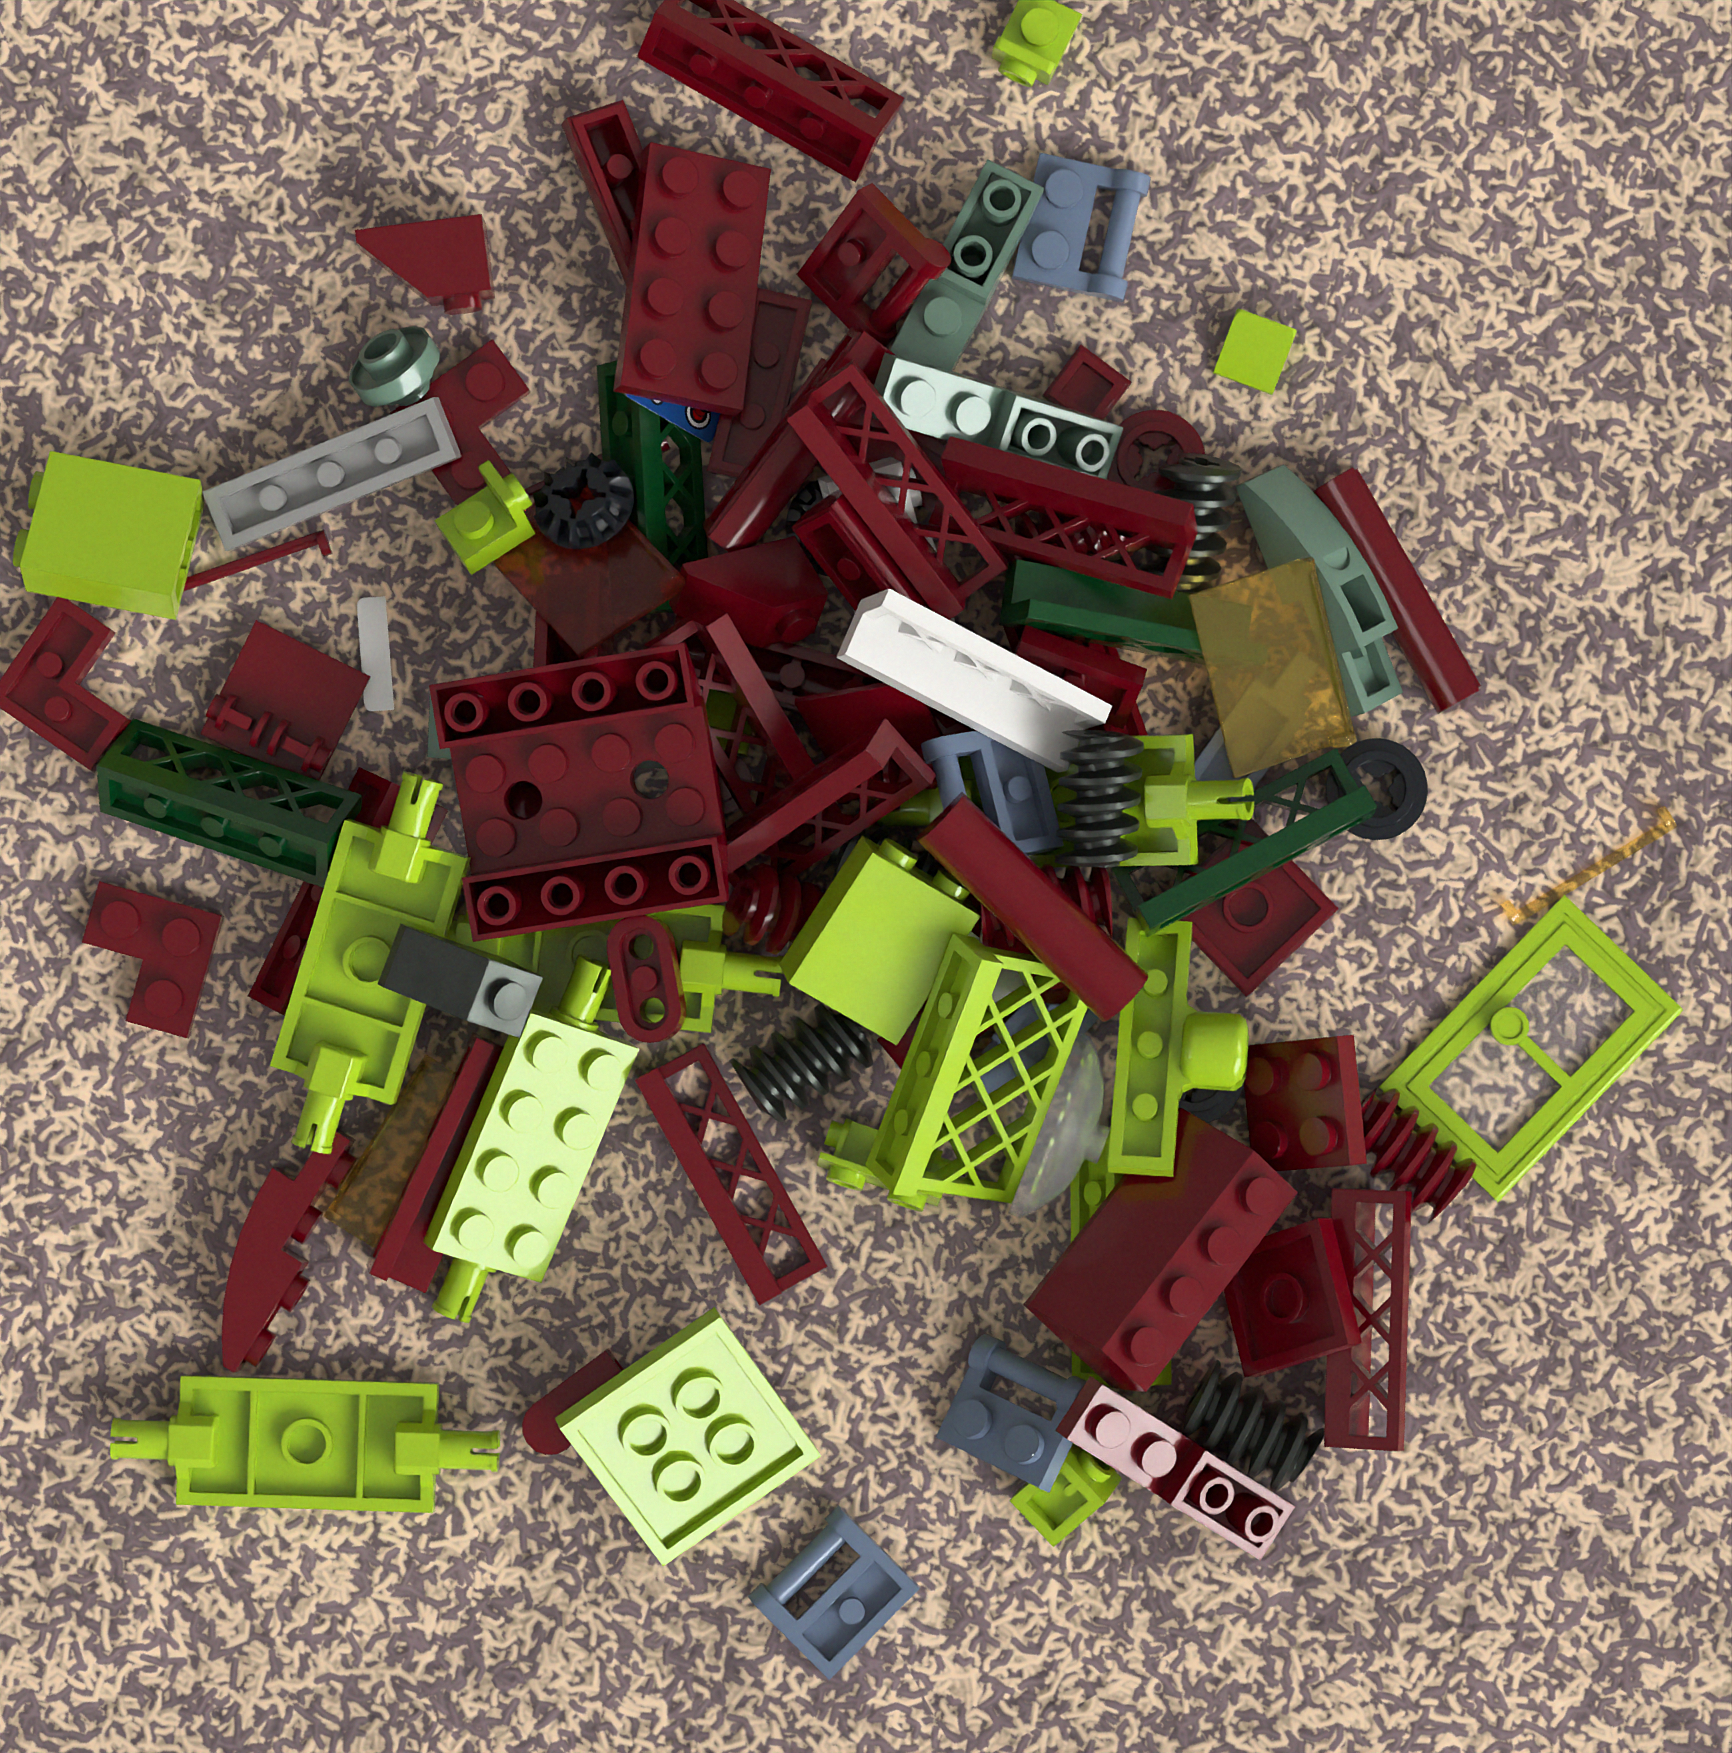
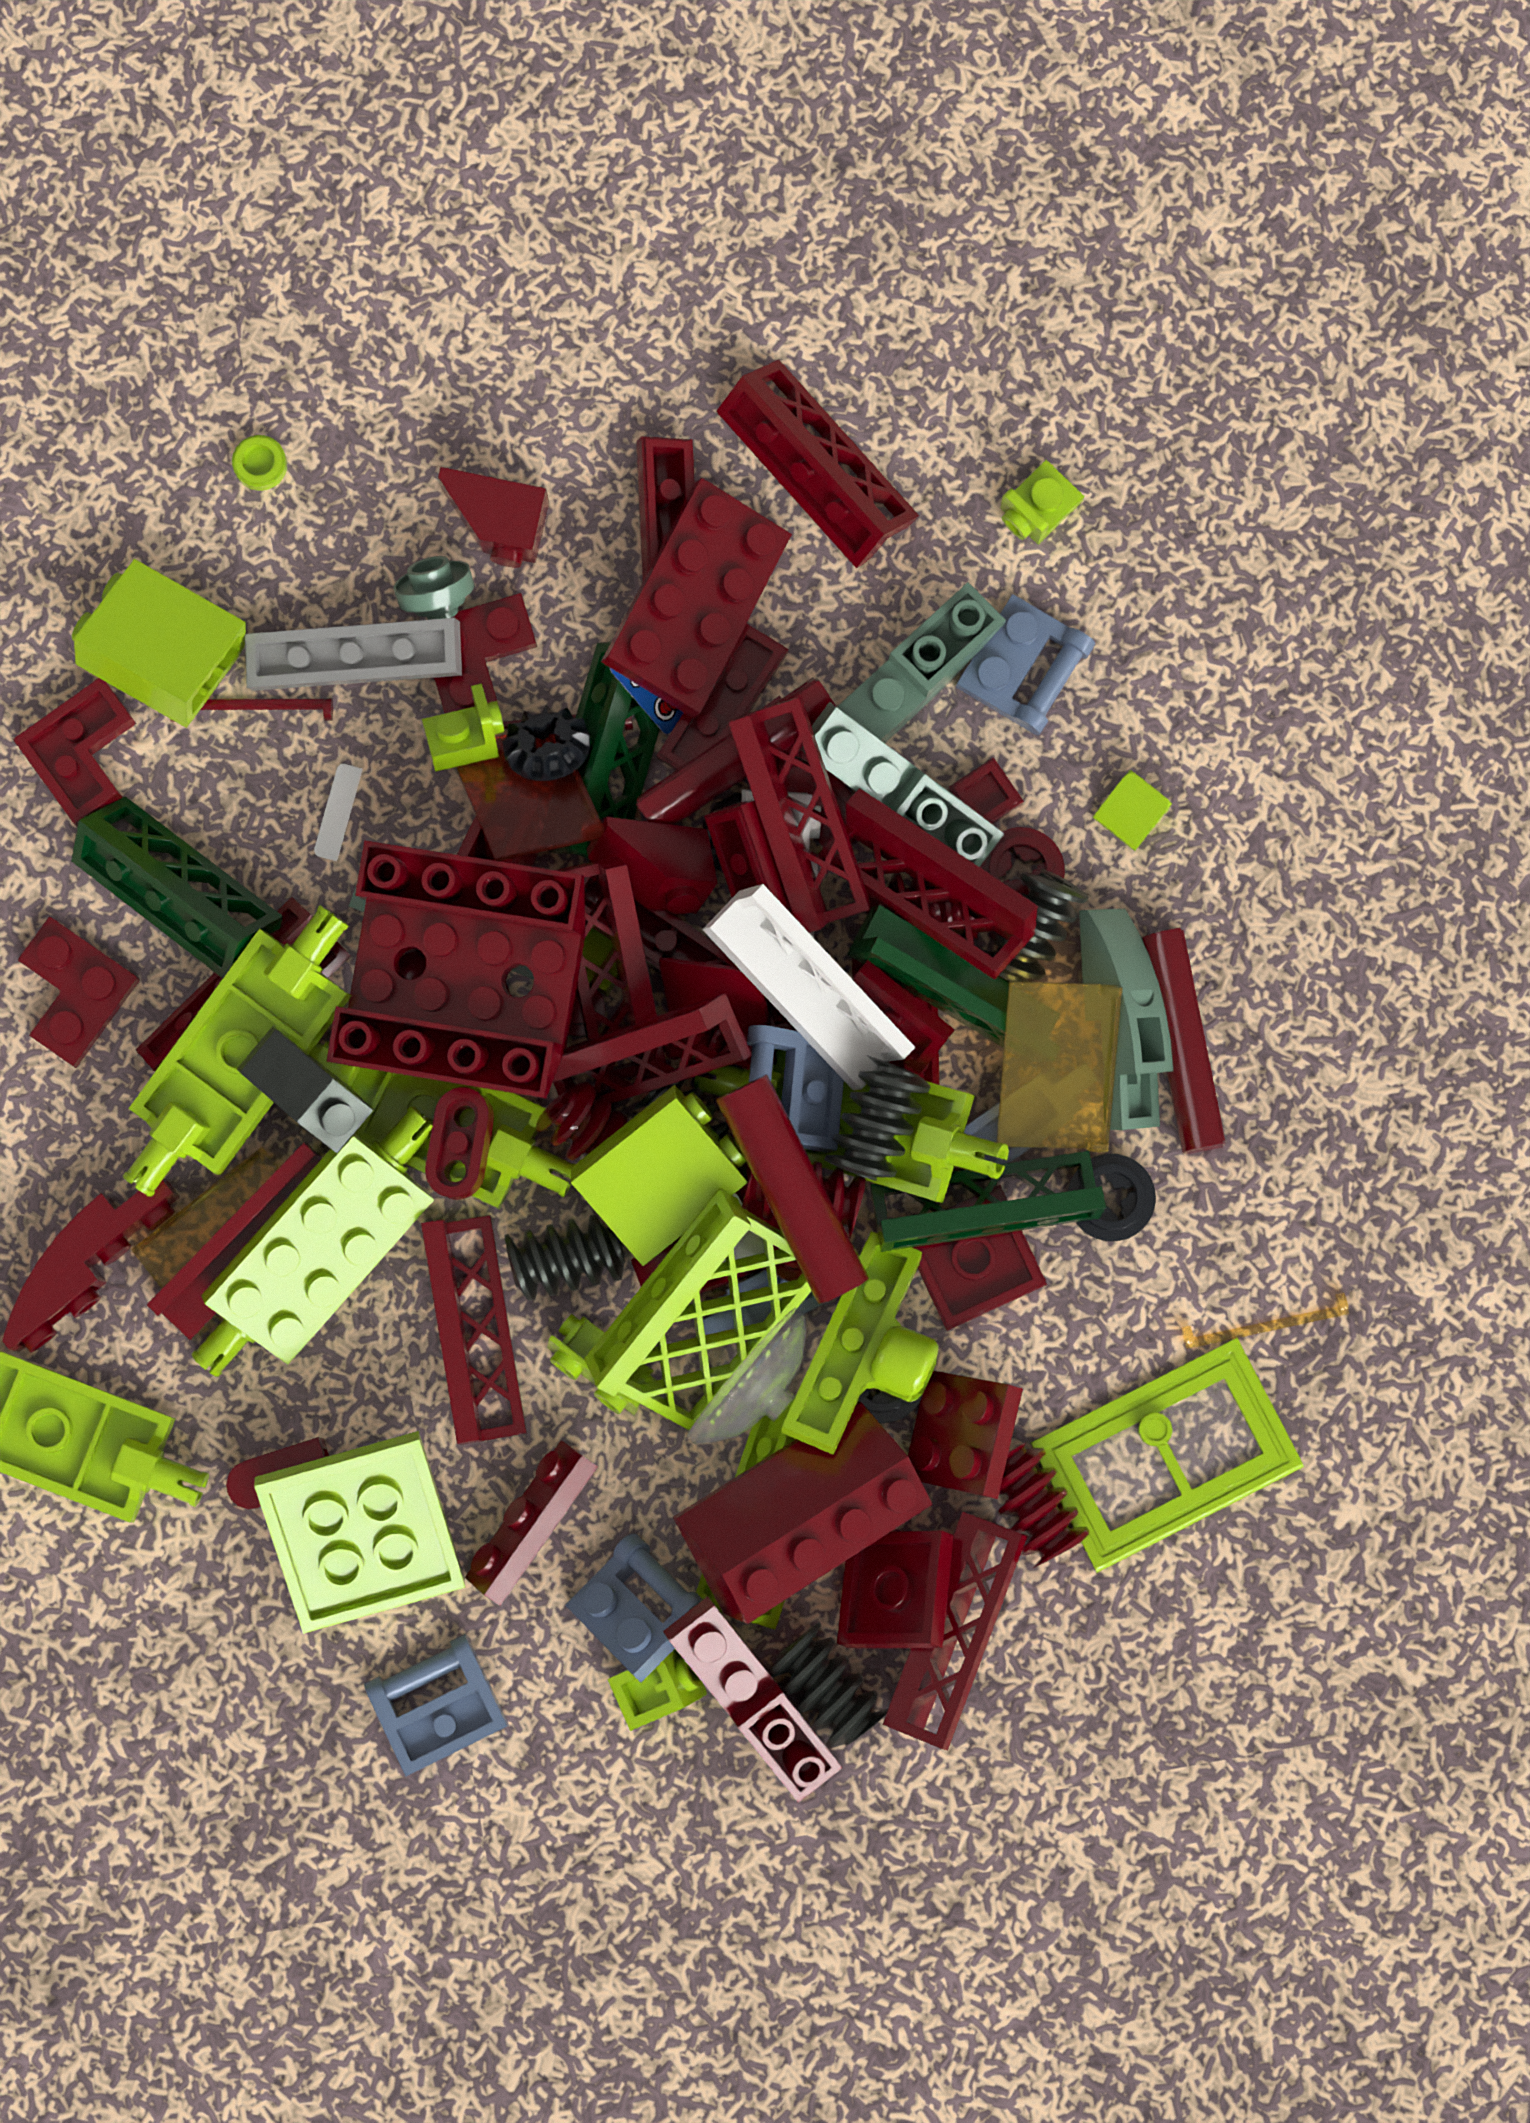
camera: 15 degrees right, 5 degrees down
(146, 290) = (259, 462): none -> lime tile
(284, 703) = (250, 824): dark red hinge -> none
(857, 254) = (836, 622): dark red plate -> none
(867, 1361) = (530, 1522): none -> dark red plate

